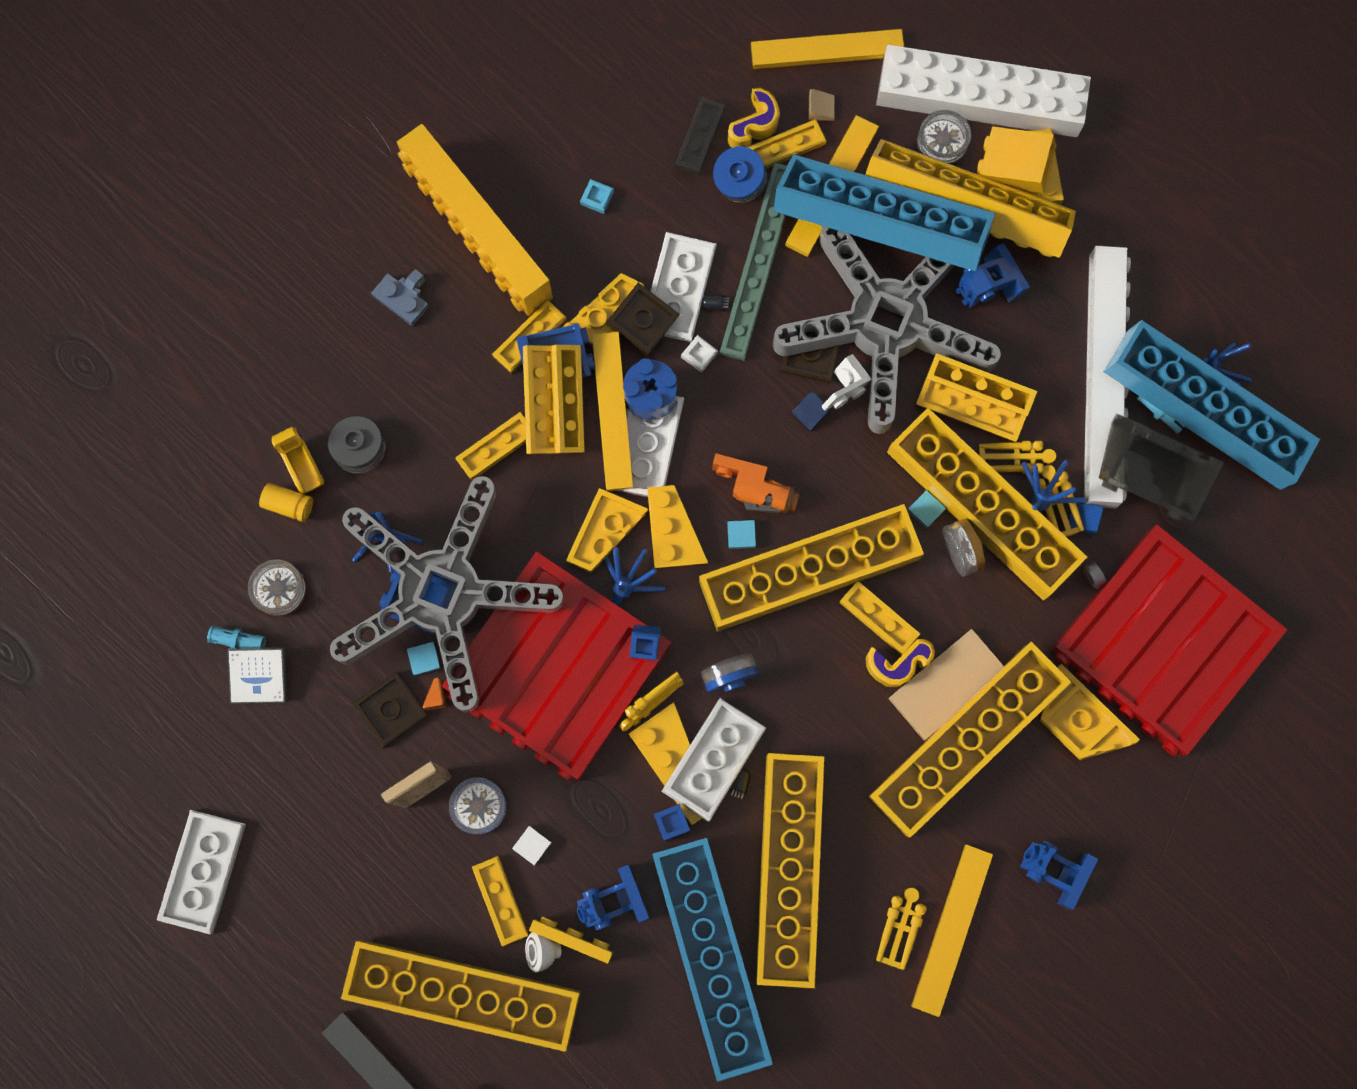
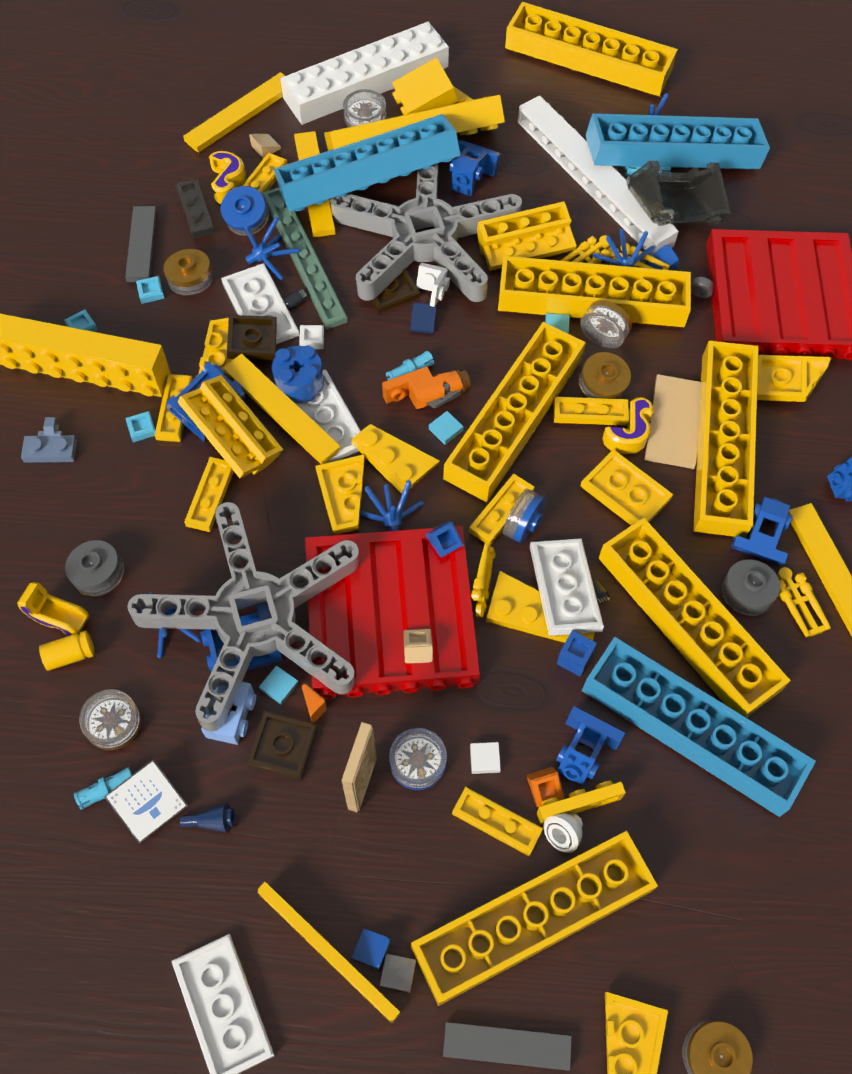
camera: 40 degrees left, 15 degrees down
(298, 730) = (217, 818): none -> dark blue cone
(300, 895) = (388, 1010): none -> yellow tile
(333, 918) = (371, 949): none -> blue slope
(337, 950) = (398, 973): none -> flat silver tile
(366, 667) = (236, 723): none -> light blue brick
(489, 334) = (141, 426): none -> medium azure tile
(512, 190) = (81, 321): none -> medium azure tile
(548, 717) = (418, 646): none -> tan slope
(559, 904) = (545, 785): none -> orange slope
(625, 139) = (141, 243): none -> dark grey tile
(641, 204) = (188, 272): none -> pearl gold piece
(711, 650) = (493, 517): none -> yellow plate
(722, 233) = (263, 251): none -> blue plant
(758, 452) = (411, 365): none -> medium azure pin
(843, 715) = (626, 489): none -> yellow plate
(866, 884) = (750, 587): none -> dark grey piece
(920, 596) = (604, 376): none -> pearl gold piece
(939, 836) = (760, 544): none -> blue tile
(1233, 226) = (590, 48): none -> yellow brick

